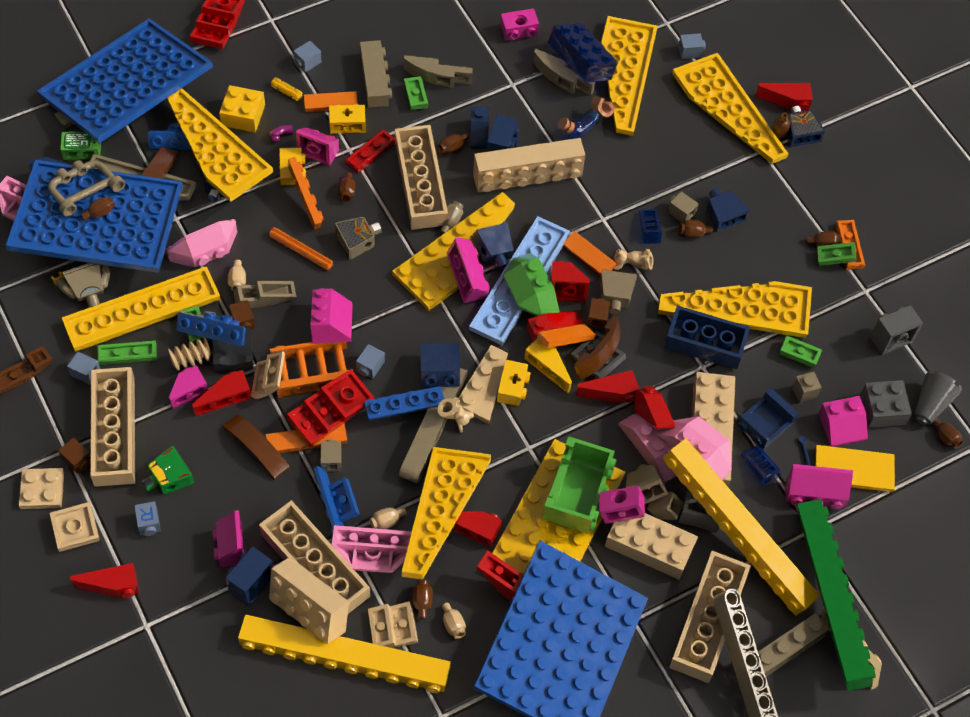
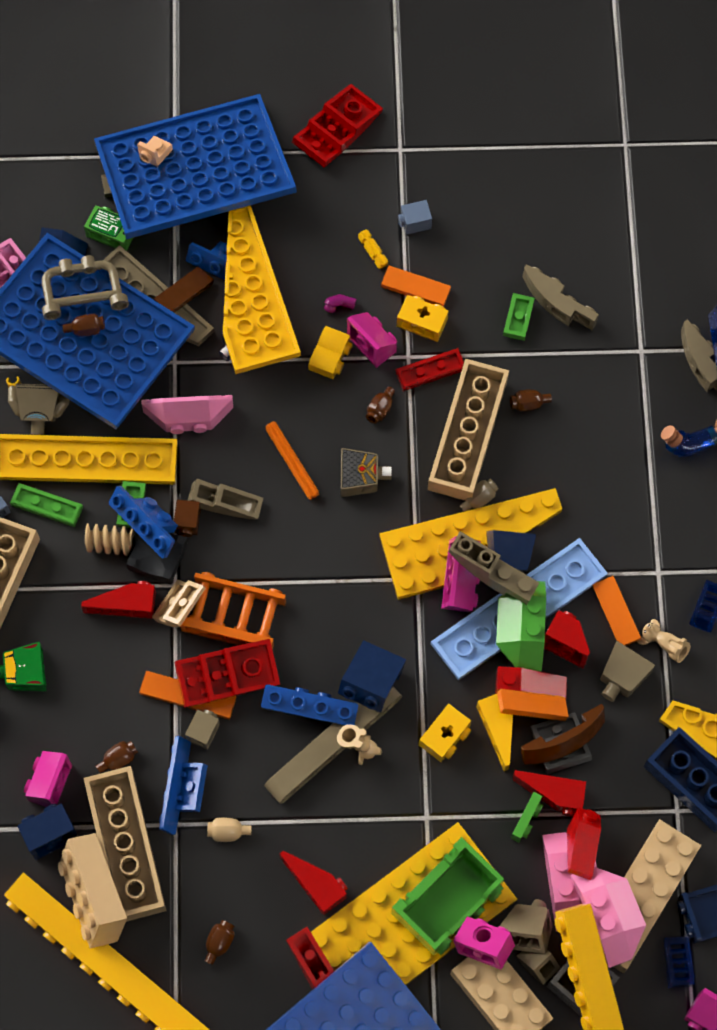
camera: 30 degrees right, 10 degrees up
(89, 79) = (154, 151): none -> light nougat bracket
(187, 387) = (89, 576): dark pink slope -> none
(236, 275) = (204, 464): tan plant -> none
(242, 108) = (309, 255): yellow brick -> none
(257, 445) = (130, 679): reddish brown slope -> none
(275, 501) = (117, 756): none -> reddish brown plant
(303, 186) = (327, 386): orange plate -> none
(330, 317) = (280, 563): dark pink slope -> none
(370, 361) = (299, 635): sand blue brick -> none
(371, 548) = (191, 861): bright pink wedge -> none
(374, 73) = (482, 272): dark tan brick -> none
(393, 625) = (174, 956): tan slope -> none
(446, 490) = (303, 831): yellow wing -> none
(453, 621) = (239, 983): tan plant -> none
(479, 127) = (569, 394): dark blue slope -> none
(484, 384) = (407, 724): tan wing -> none
(489, 253) = (491, 570): none -> dark tan slope
(503, 134) = (584, 425): dark blue brick -> none
(519, 24) = (697, 270): dark pink brick -> none
(528, 165) = (600, 470): tan brick -> none
(598, 313) = (587, 691): reddish brown brick -> none
(603, 407) = (532, 809): none -> bright green plate

